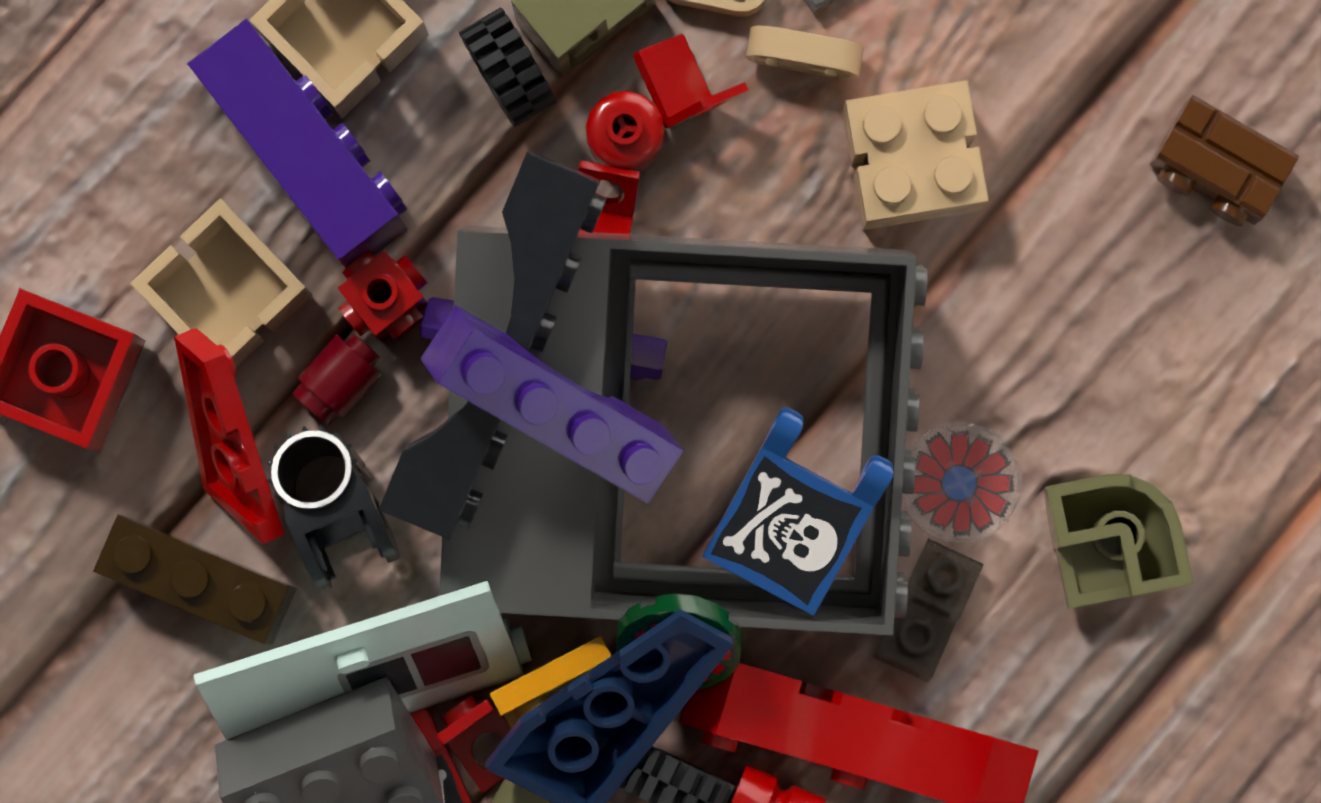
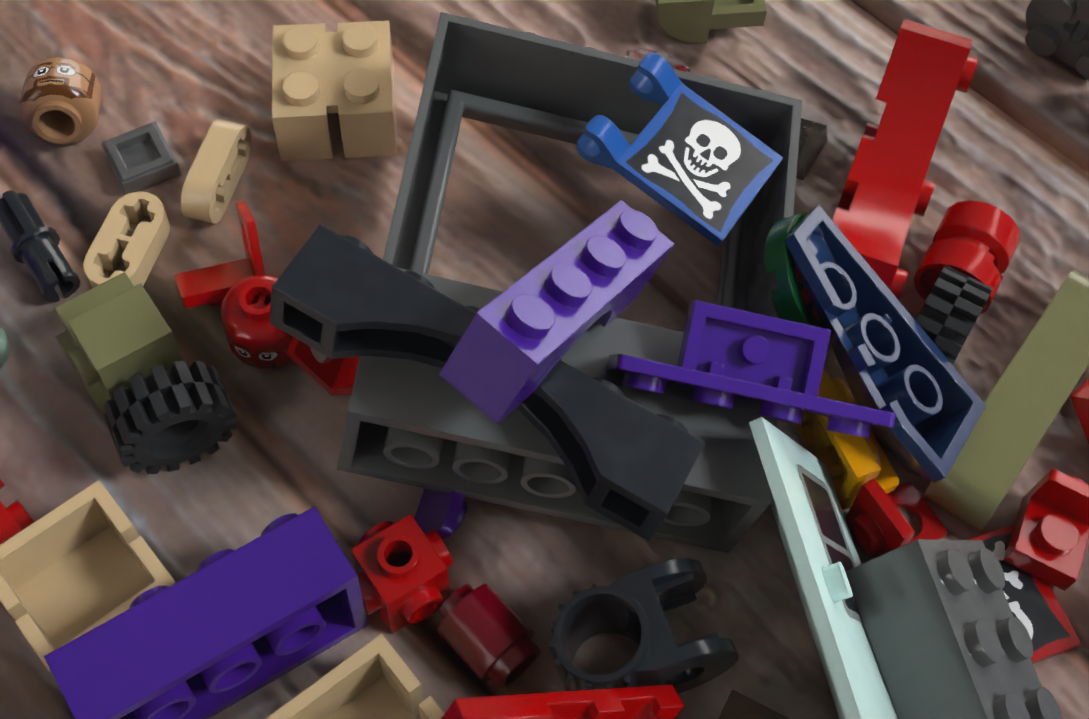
camera: 90 degrees left, 25 degrees down
(550, 583) = (755, 359): none -> dark purple bracket

